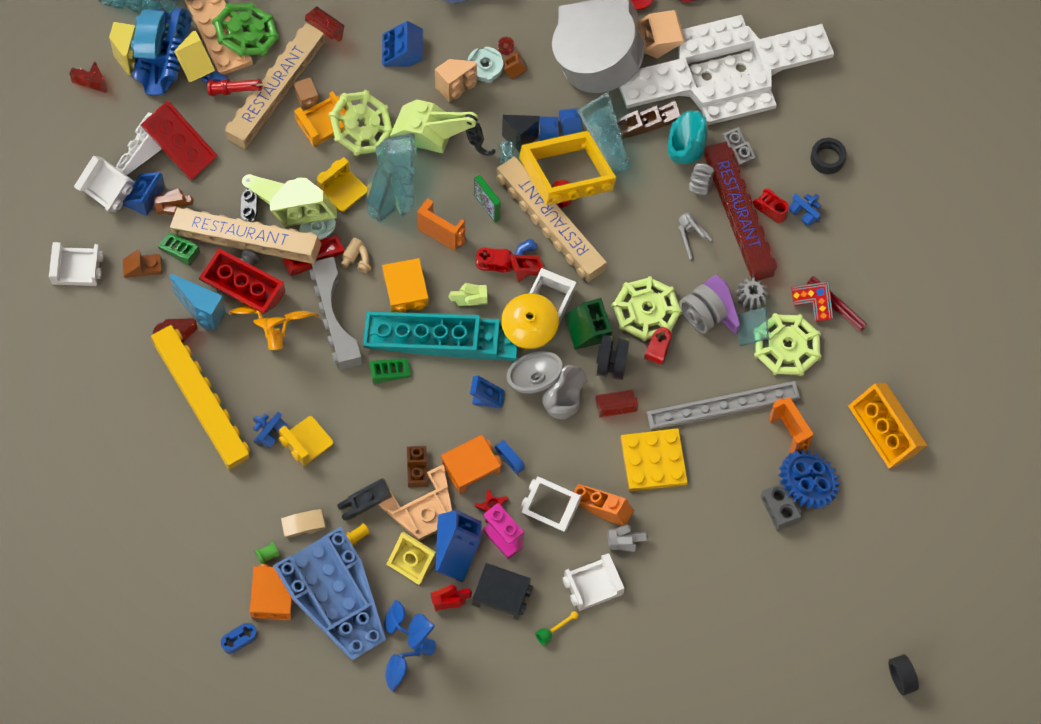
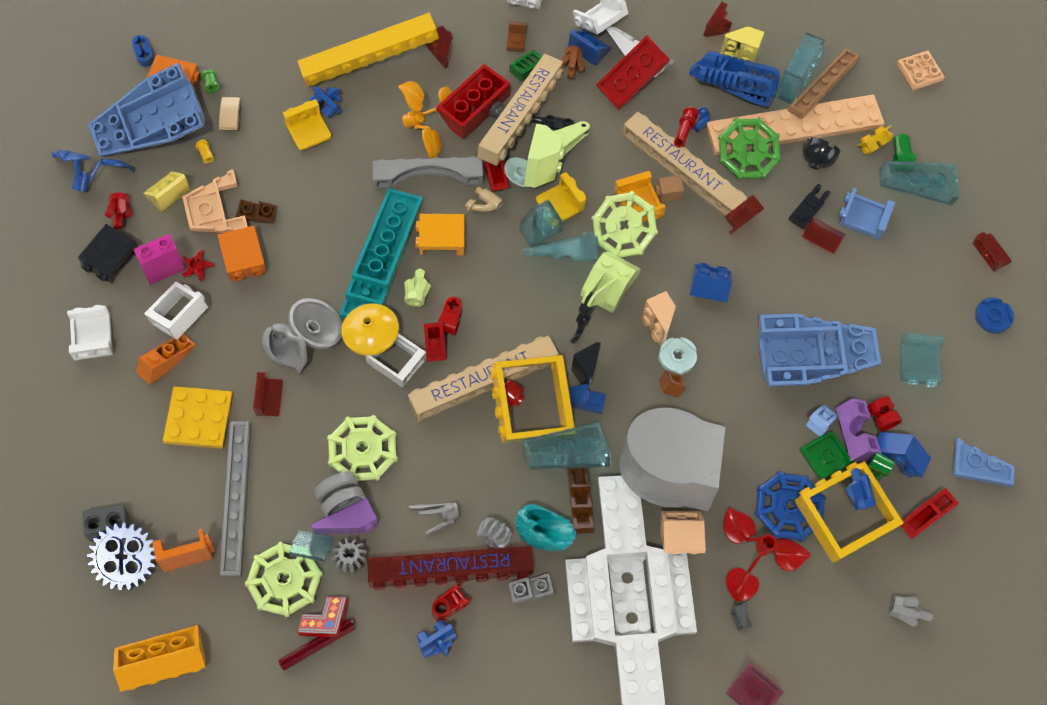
camera: 100 degrees right, 0 degrees up
(148, 34) = (745, 56): dark azure brick -> none
(194, 58) = (721, 97): light yellow slope -> none
(201, 303) = (462, 62): dark azure slope -> none
(365, 499) = (232, 160): black hinge -> none
(381, 364) = (359, 194): green slope -> none
(438, 228) = (503, 260): orange panel -> none
(456, 543) = (162, 217): blue slope -> none
(486, 393) = (309, 279): blue slope -> none
(487, 198) = (515, 319): green tile -> none
(505, 40) = (692, 382): clear red bush -> none
(506, 152) = (568, 352): clear light blue bush -> none
(510, 457) = (239, 288): blue beam -> none
(525, 246) = (459, 348): blue arm -> none
(545, 635) = (55, 281): hinge -> none
(570, 121) = (586, 417): blue slope -> none
(588, 324) = (355, 387): dark green slope -> none
(612, 356) = (309, 395): black wheel -> none
(623, 539) = (123, 369): light grey rock -> none
(658, 349) = (315, 447): red piece -> none
(829, 143) = (501, 667): black tyre -> none

